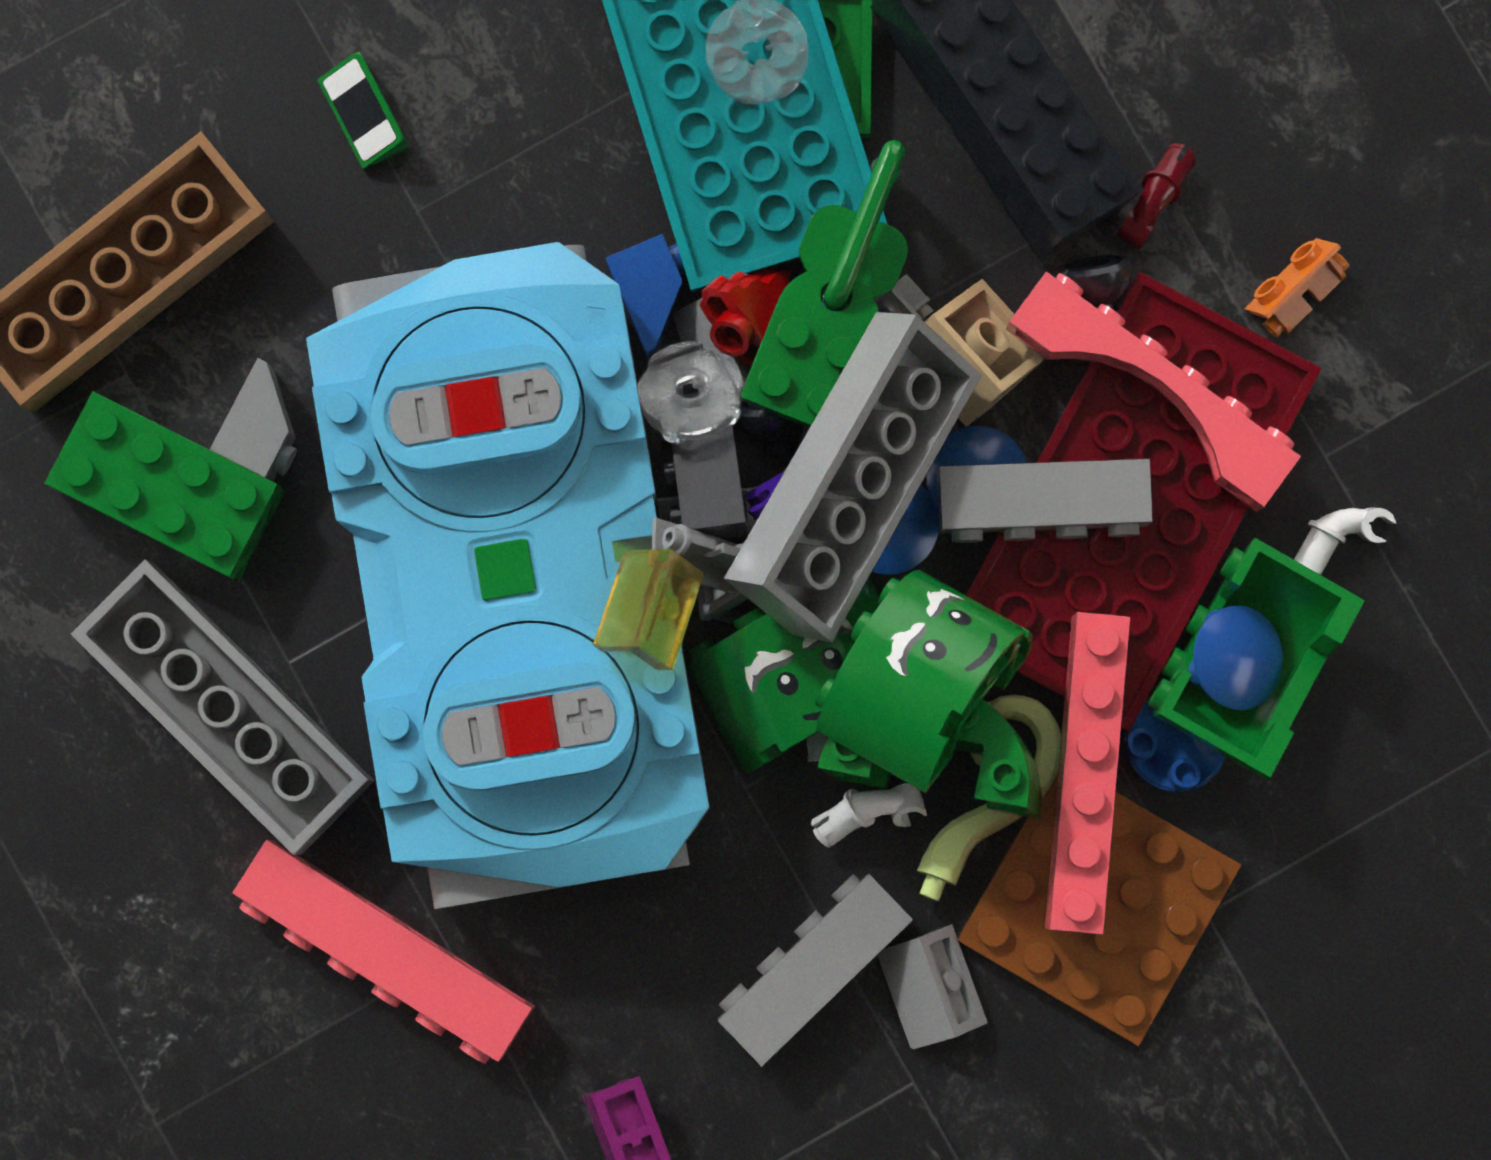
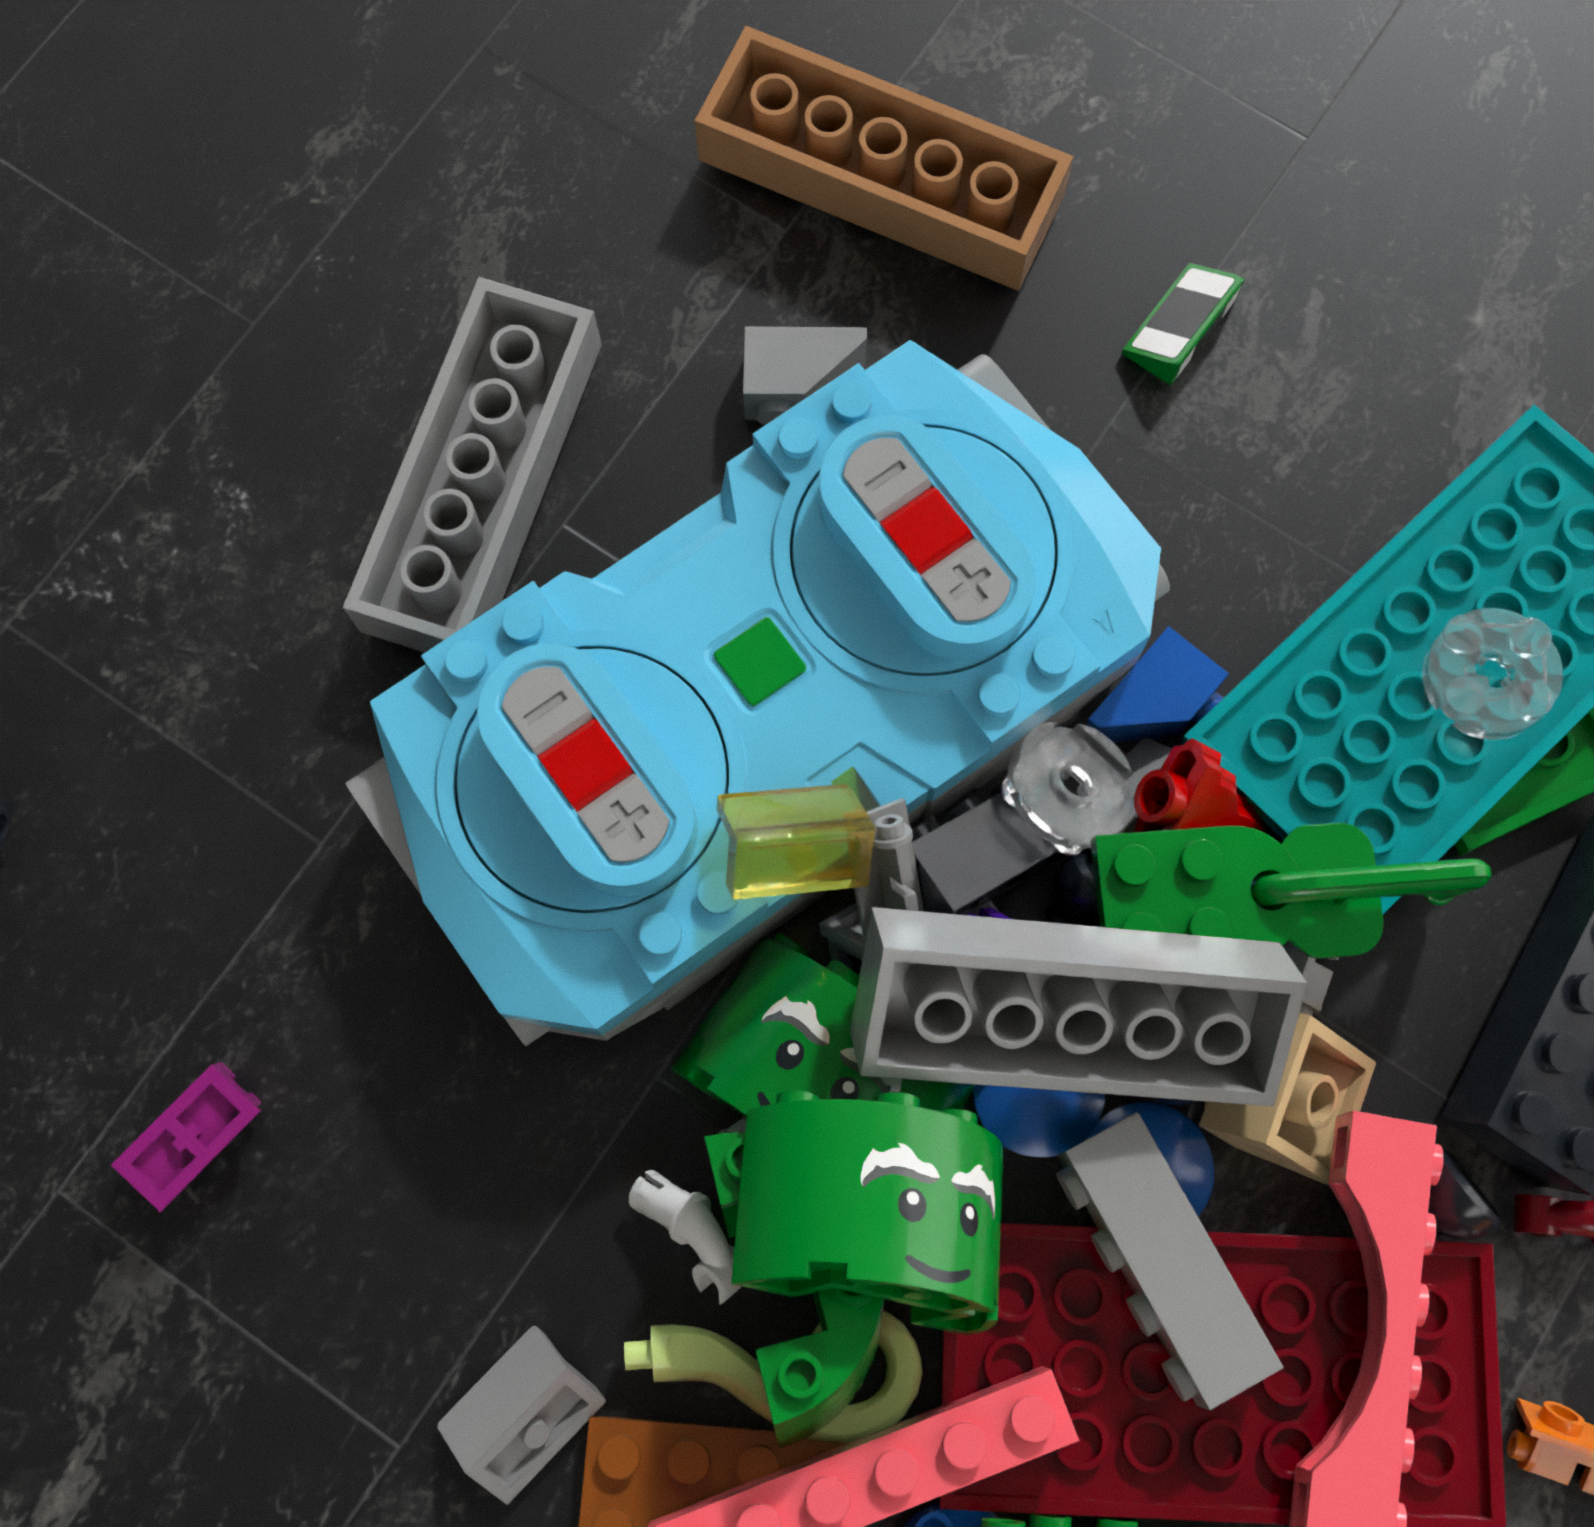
camera: 65 degrees right, 10 degrees down
(165, 486) = (684, 310): green brick -> none
(382, 950) = (285, 770): coral brick -> none
(814, 969) = (477, 1258): light grey brick -> none

